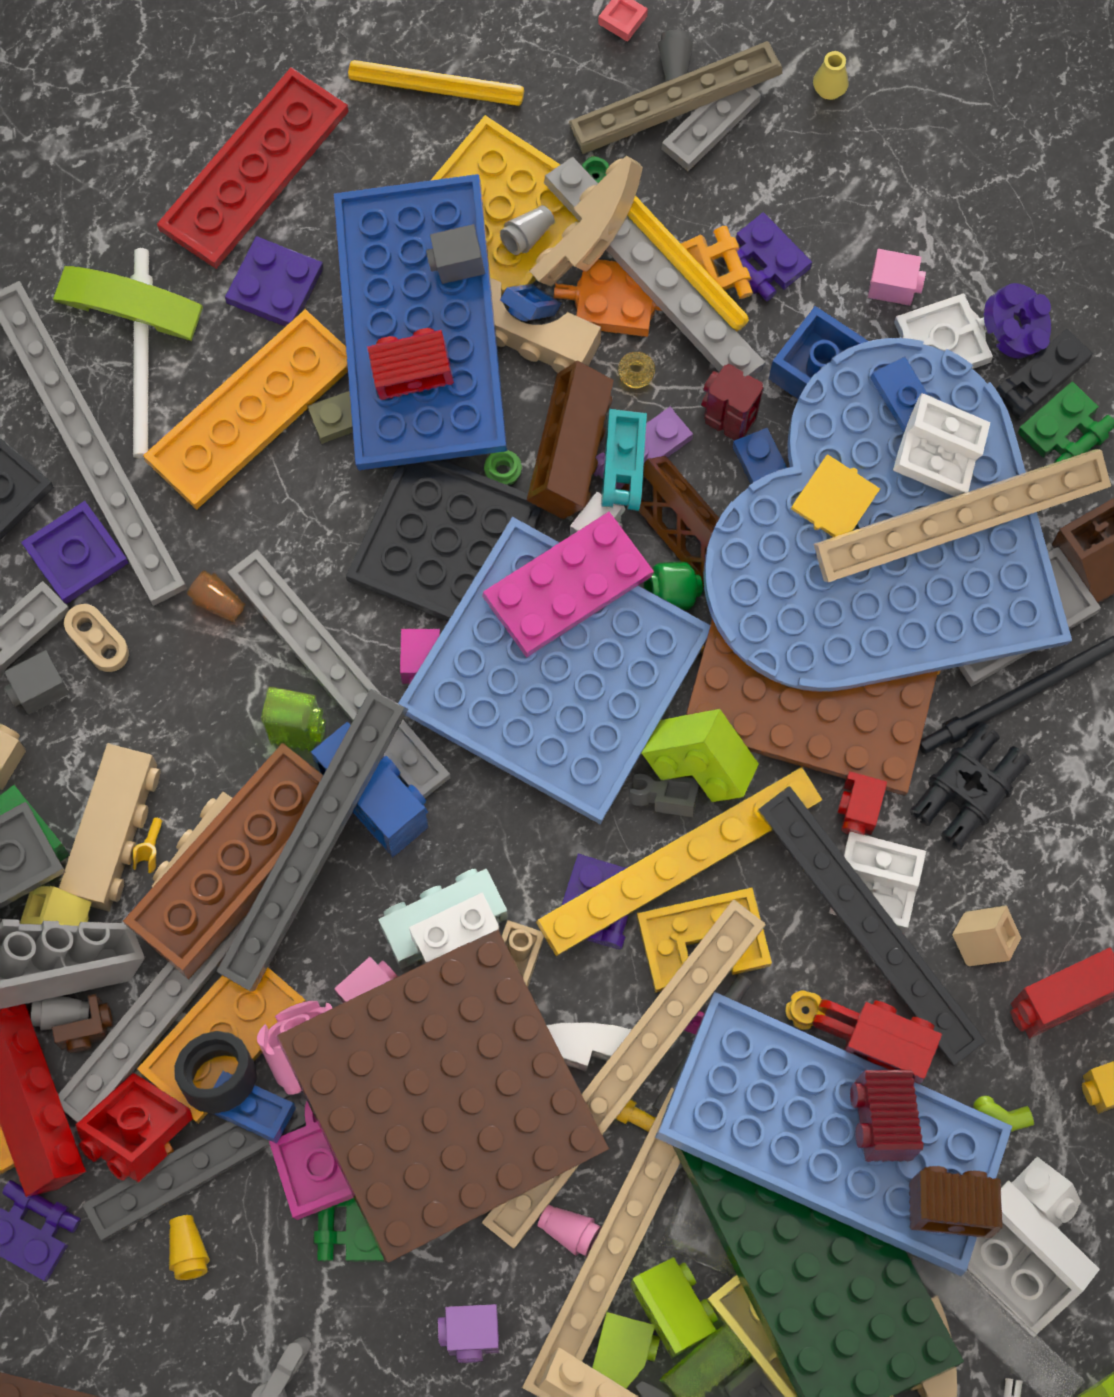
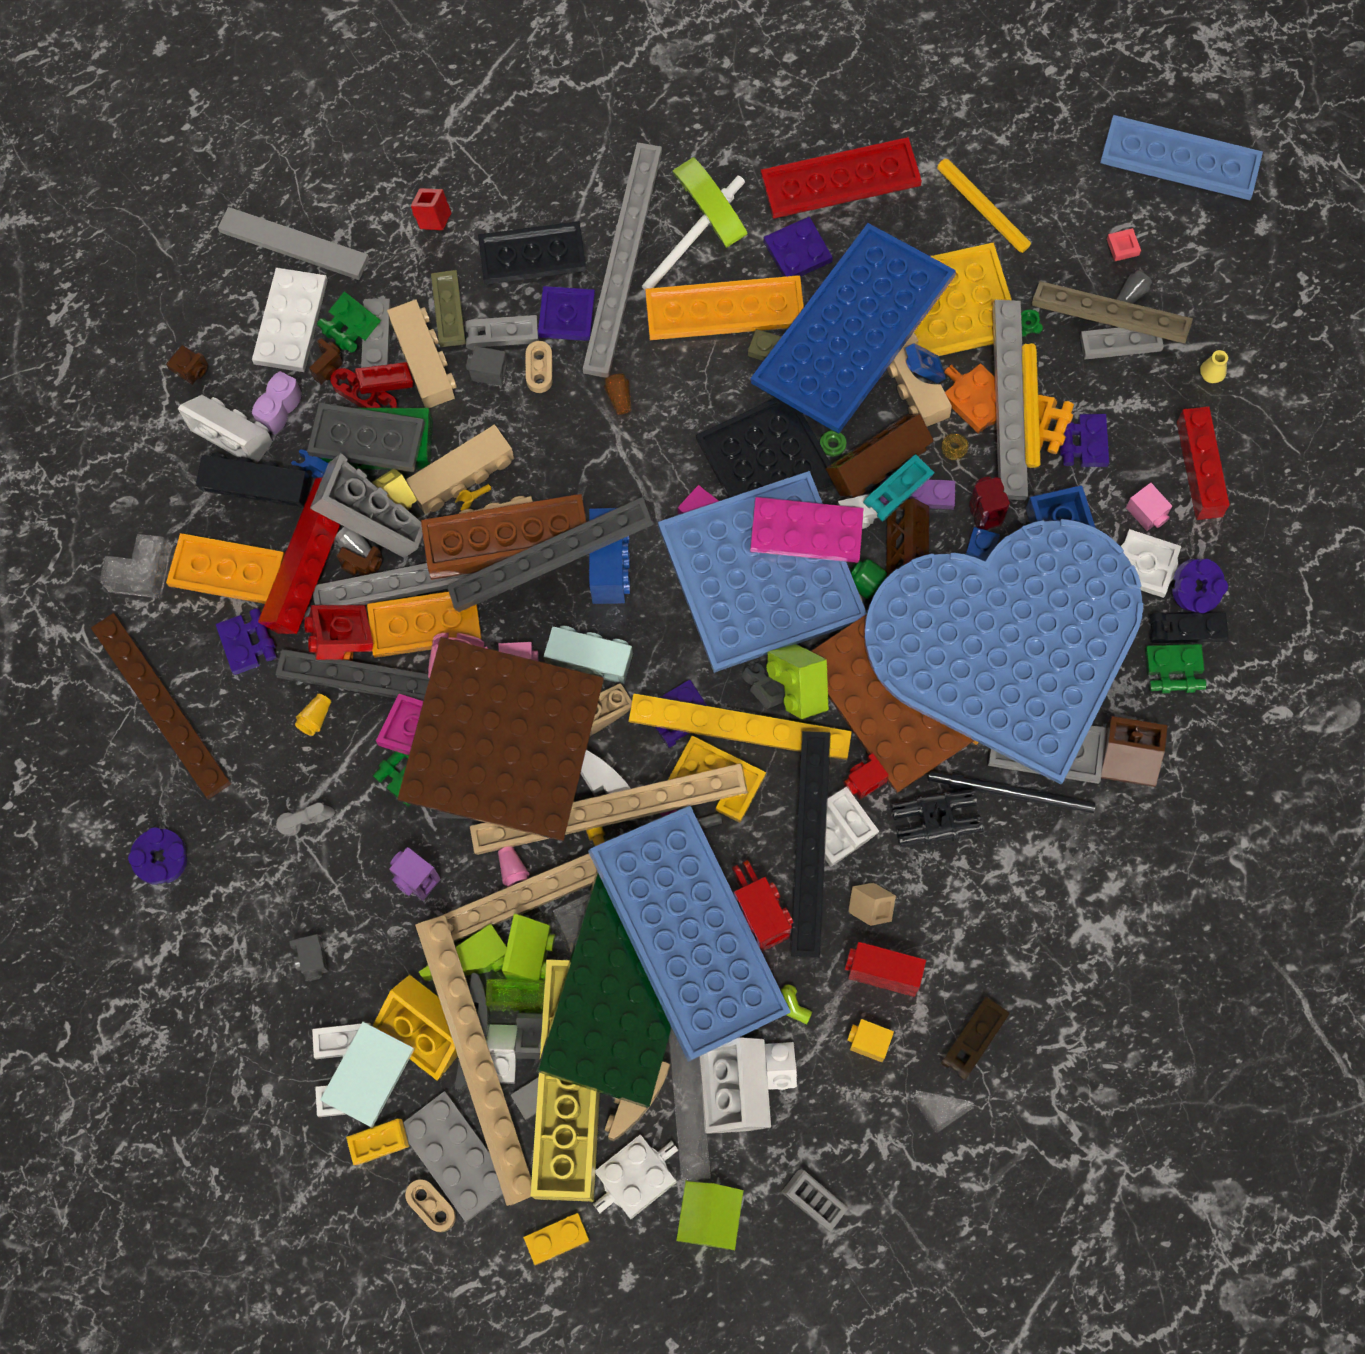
camera: 45 degrees right, 0 degrees up
(202, 1050) = (395, 620): black tyre -> none
(259, 1112) = (403, 668): blue plate -> none
(292, 719) = (599, 485): clear neon green brick -> none
(330, 664) = (647, 481): light grey plate -> none
(410, 363) = (824, 344): red brick -> none
(453, 927) = (583, 659): white bracket -> none
(456, 254) = (901, 304): dark grey brick -> none
(525, 230) = (956, 322): light grey cone -> none
(602, 214) = (1003, 343): tan slope -> none
(798, 1001) = (737, 853): yellow plate -> none
(835, 498) = (993, 597): yellow piece -> none
(887, 1115) = (721, 944): dark red brick -> none
(899, 389) = (1083, 574): blue plate -> none
(908, 188) = (1202, 463): none -> red brick
(941, 446) = (1079, 615): white slope -> none
(955, 1202) = (716, 1019): reddish brown brick -> none
(962, 515) = (1058, 662): tan plate -> none

